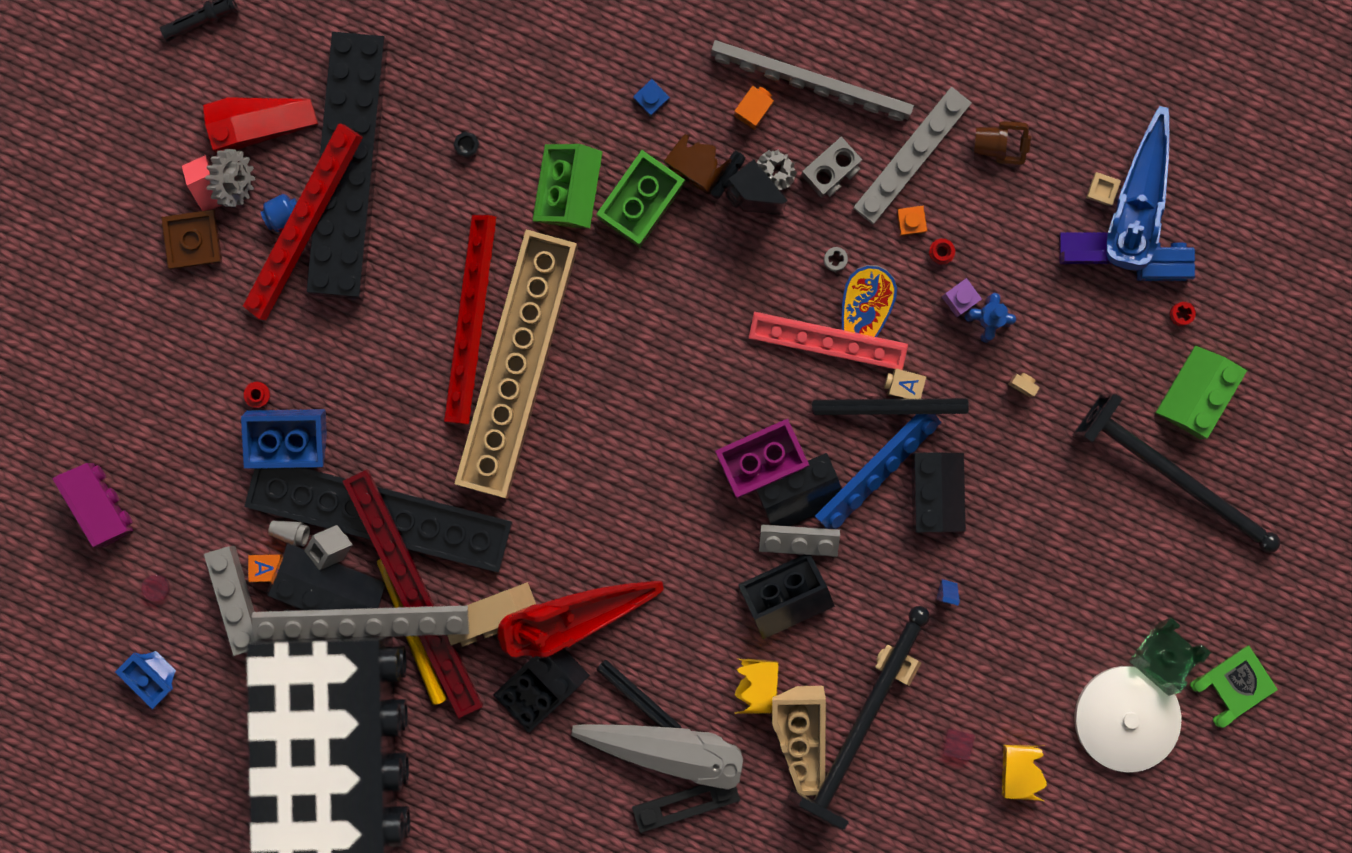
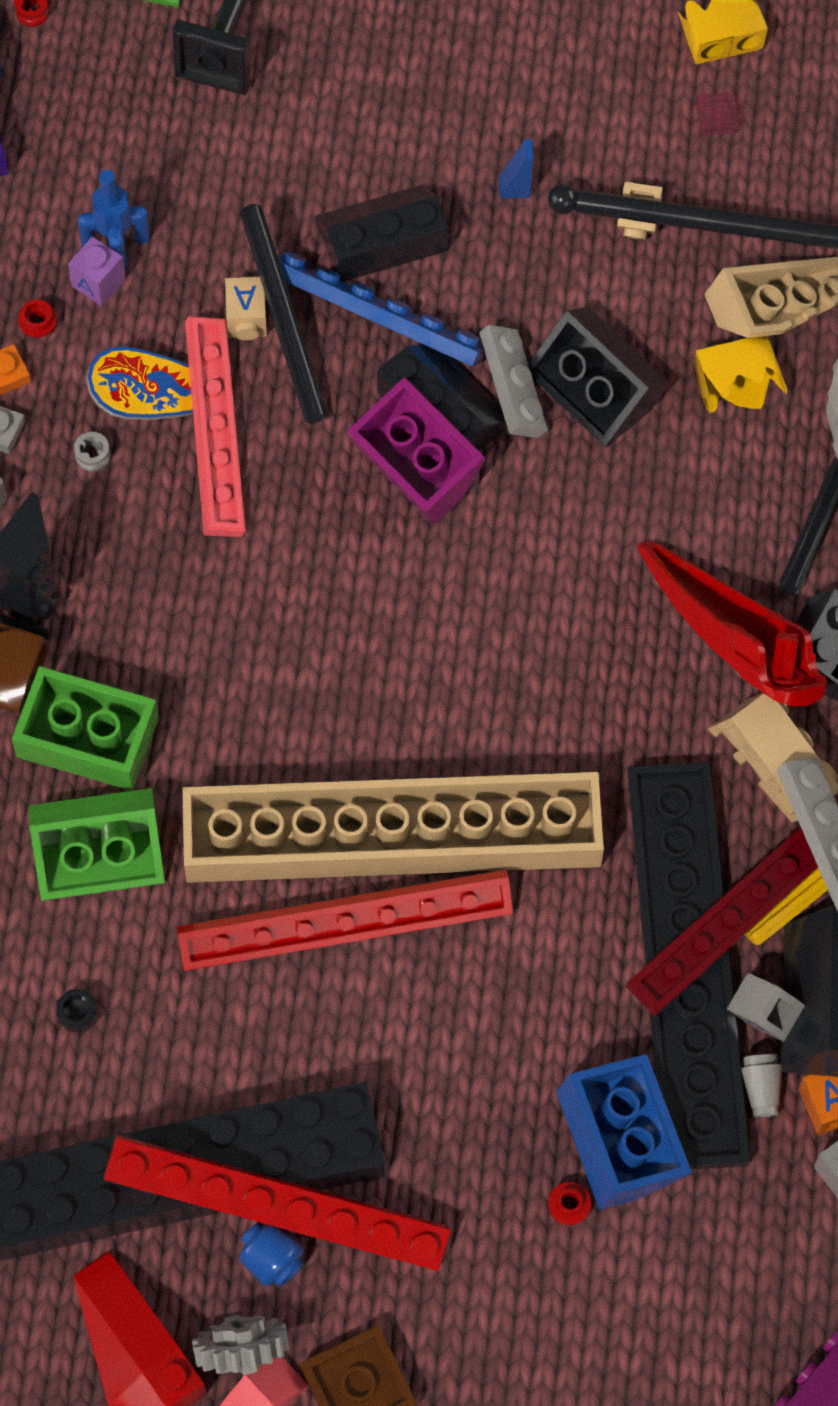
camera: 105 degrees left, 20 degrees down
(1024, 384) = (194, 163): tan plate -> none

